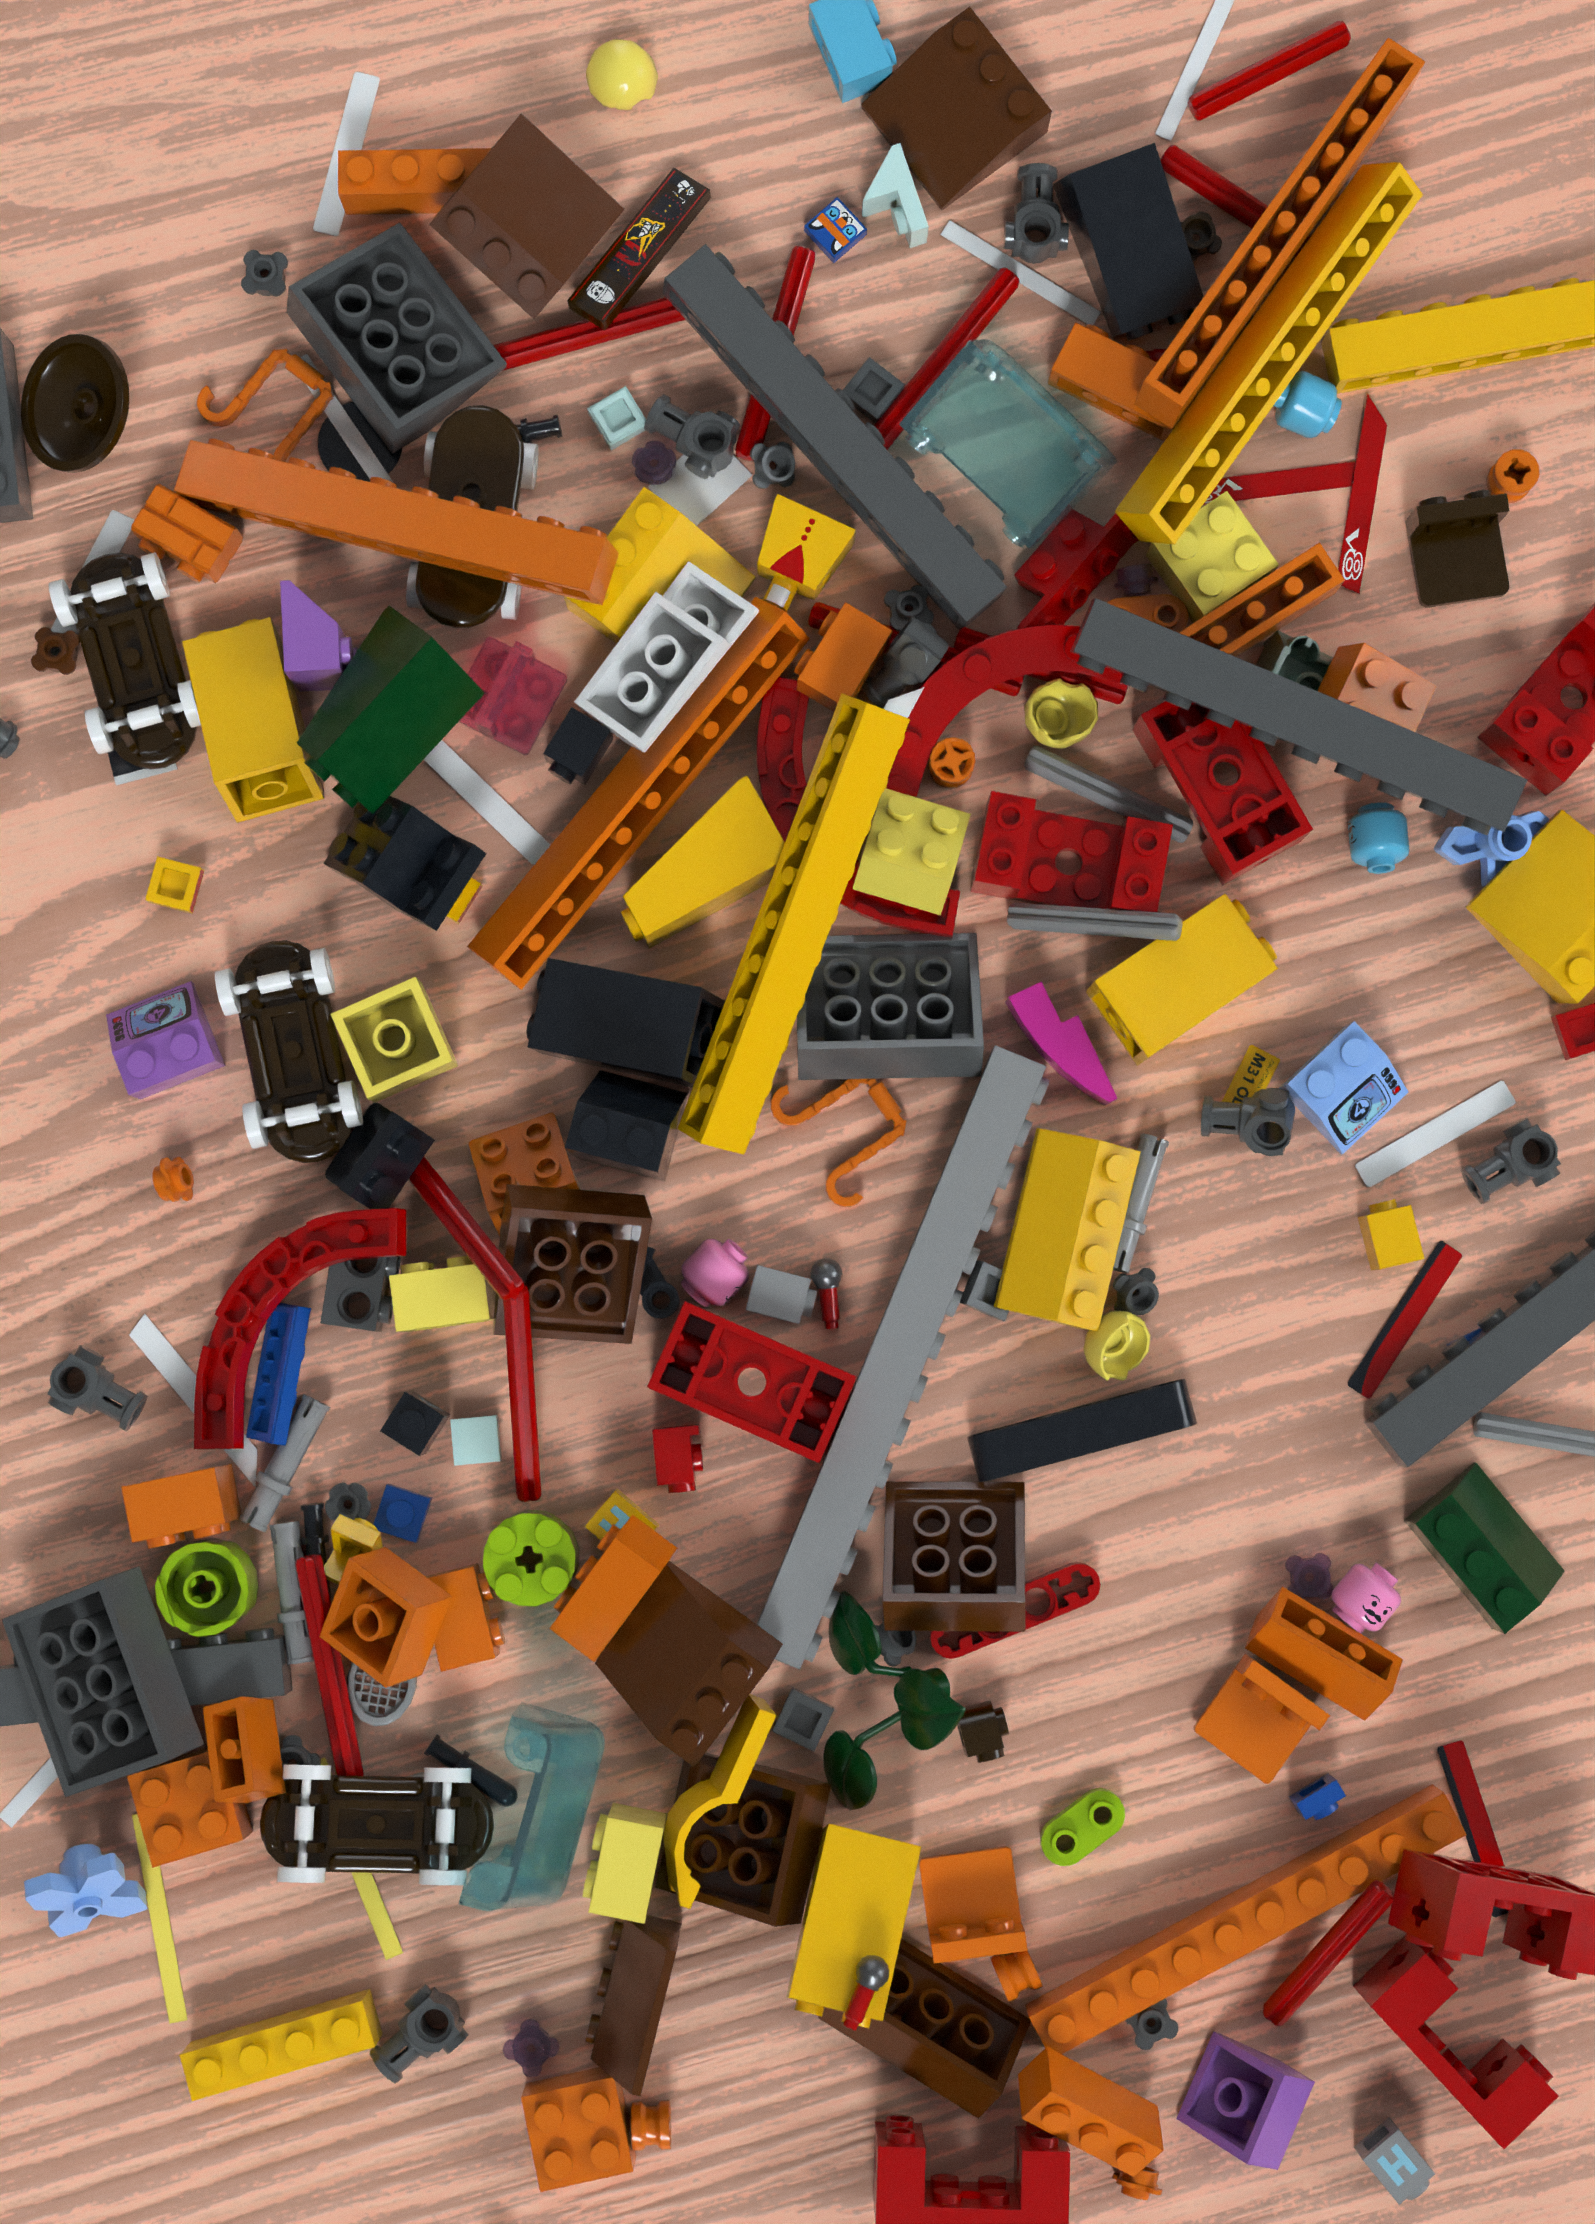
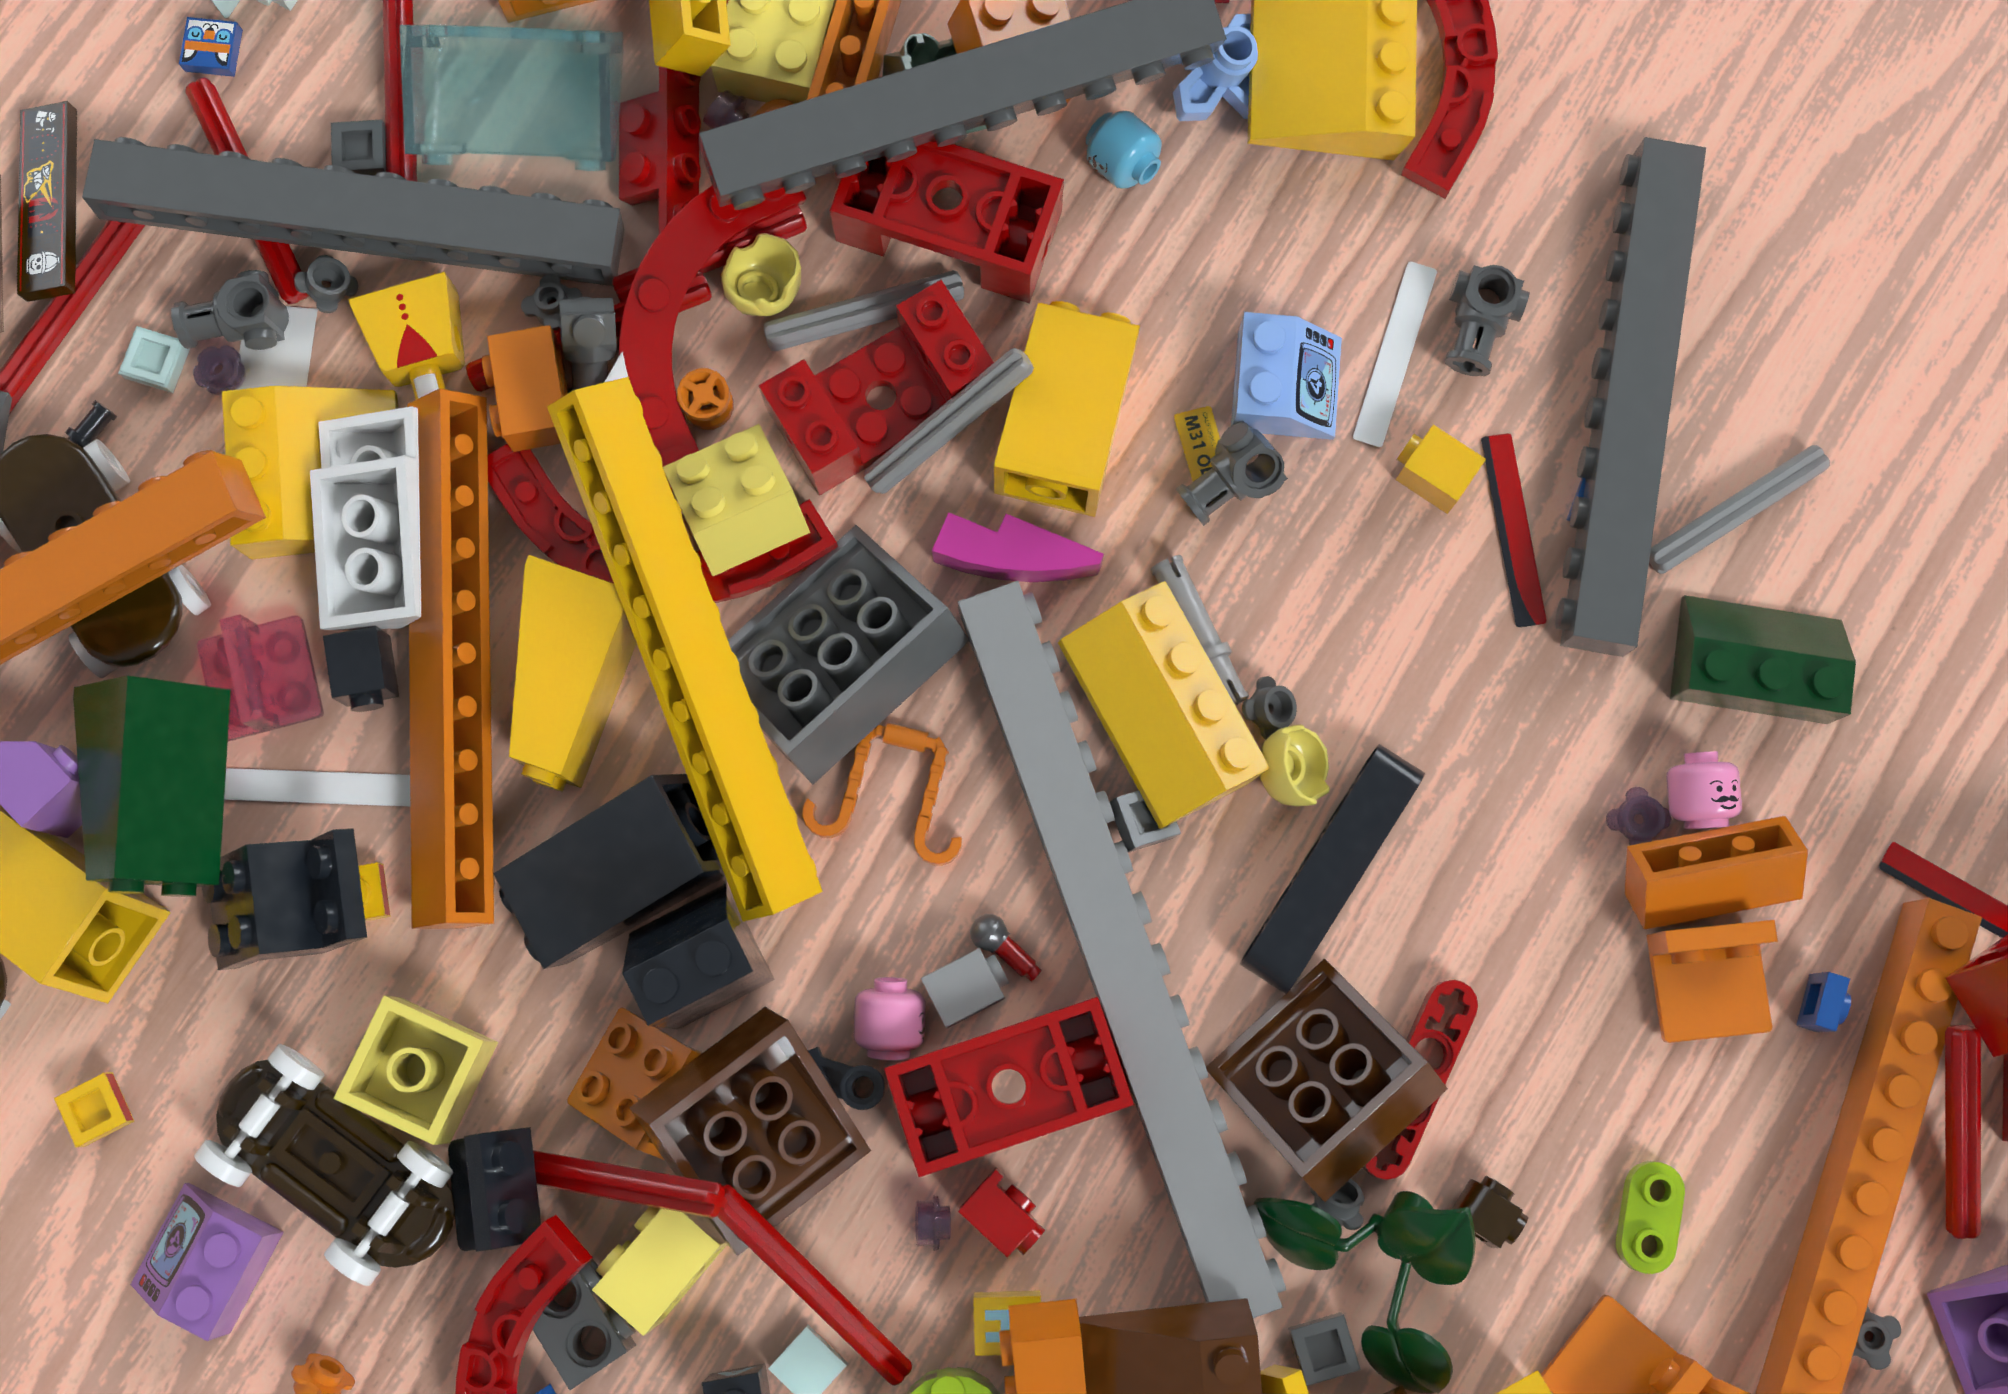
camera: 40 degrees left, 5 degrees down
(629, 1422) = (932, 1223): none -> plate

